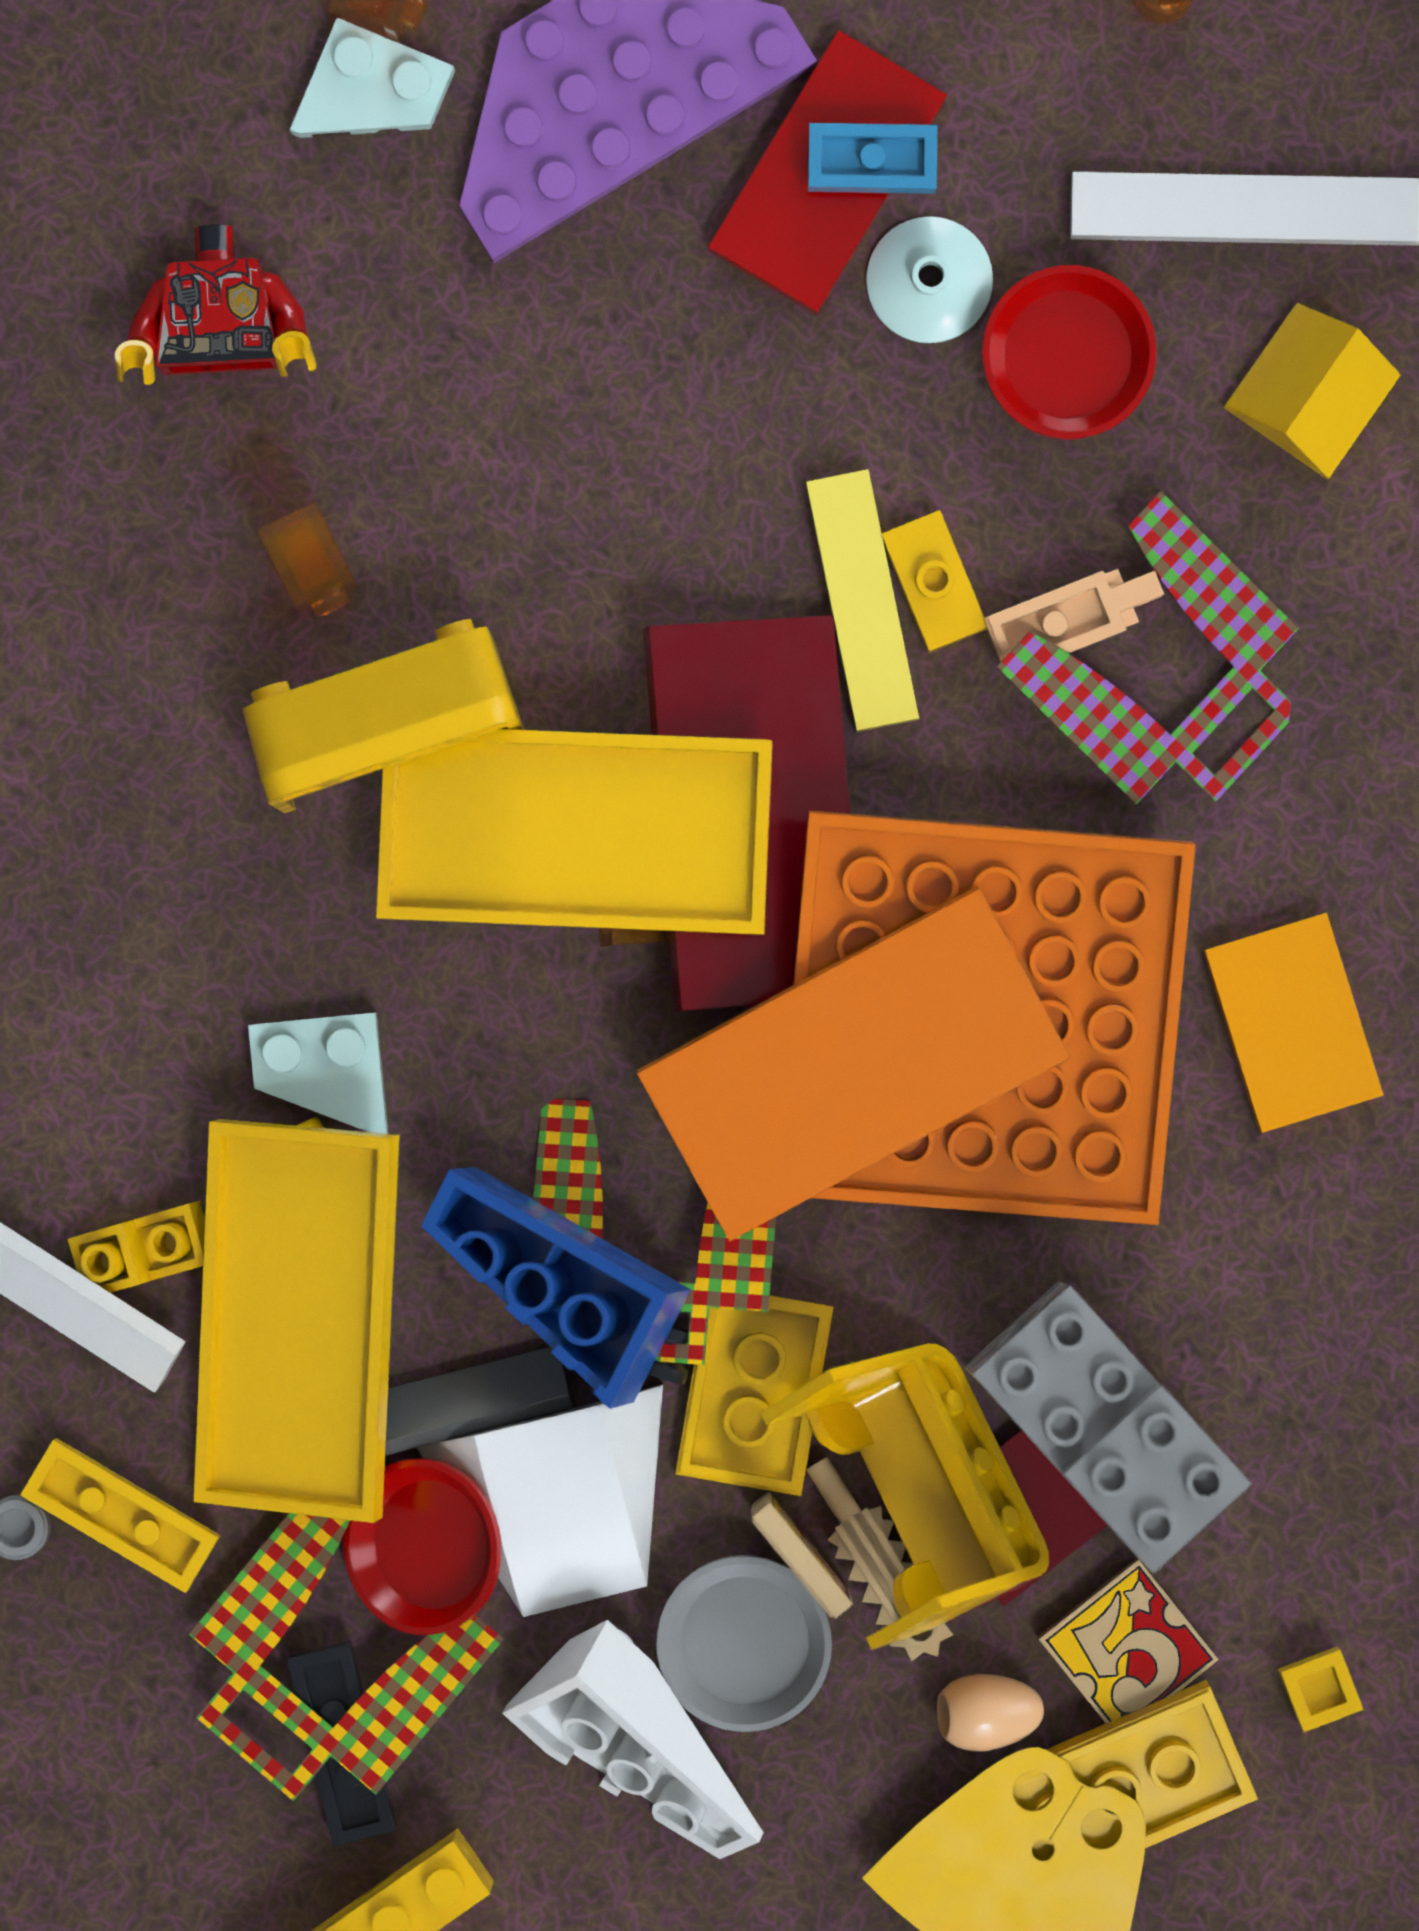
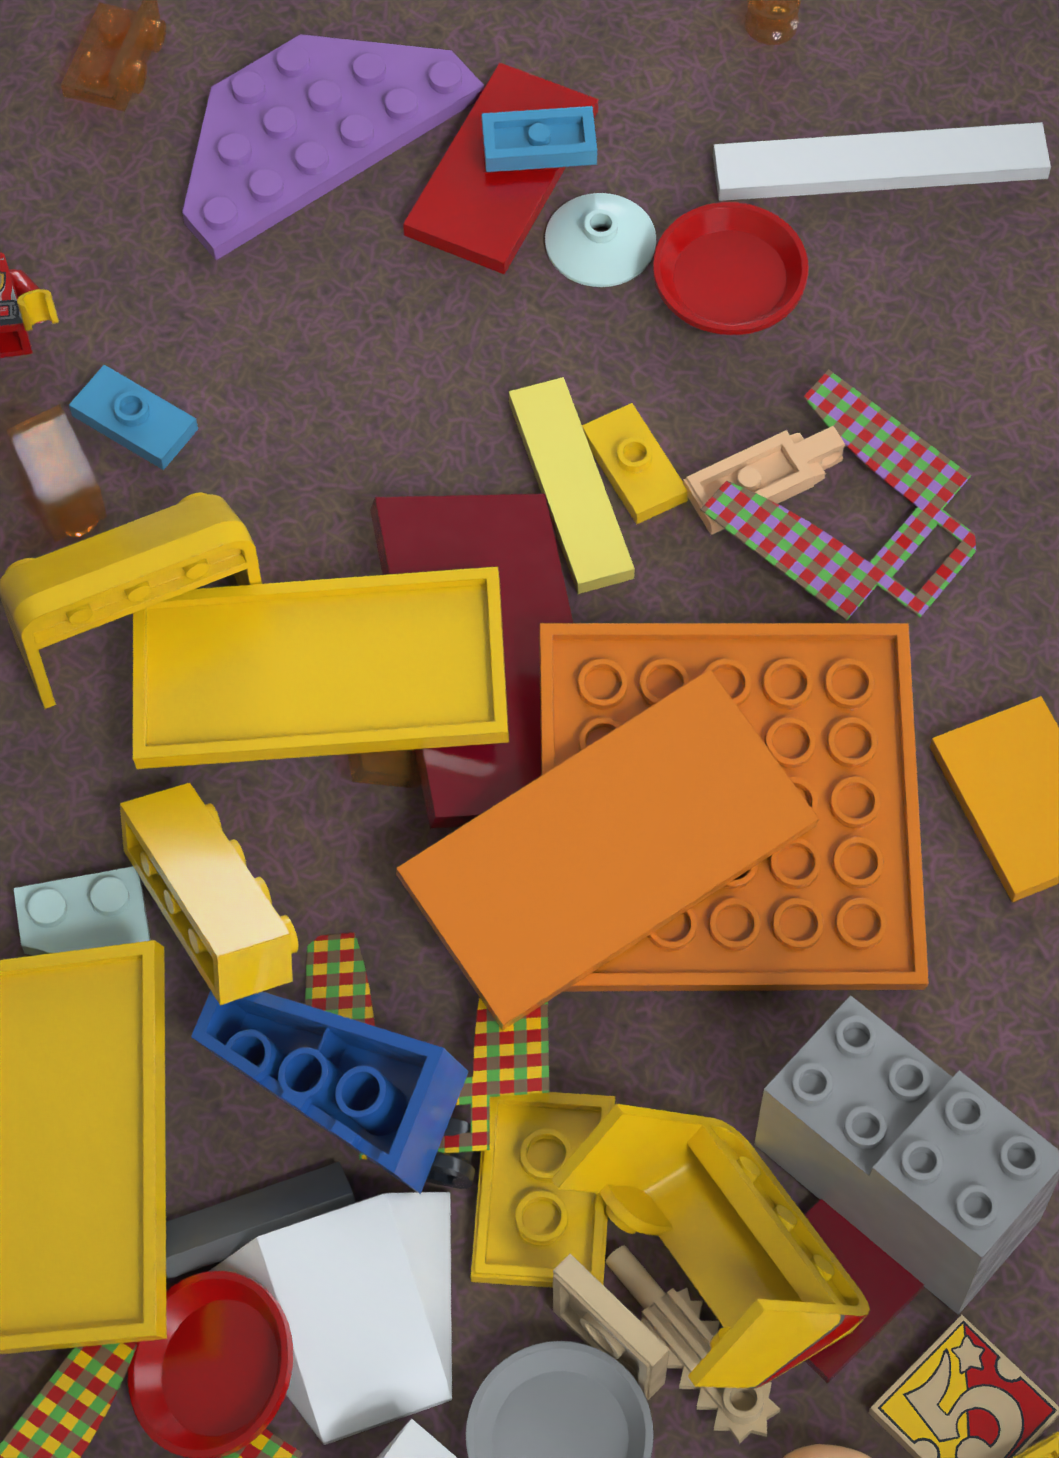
camera: 10 degrees left, 25 degrees down
(370, 86) = (101, 137): light aqua wing -> none
(392, 467) = (133, 417): none -> dark azure plate
(445, 1074) = (208, 893): none -> yellow brick
(1314, 388) = (953, 284): yellow slope -> none

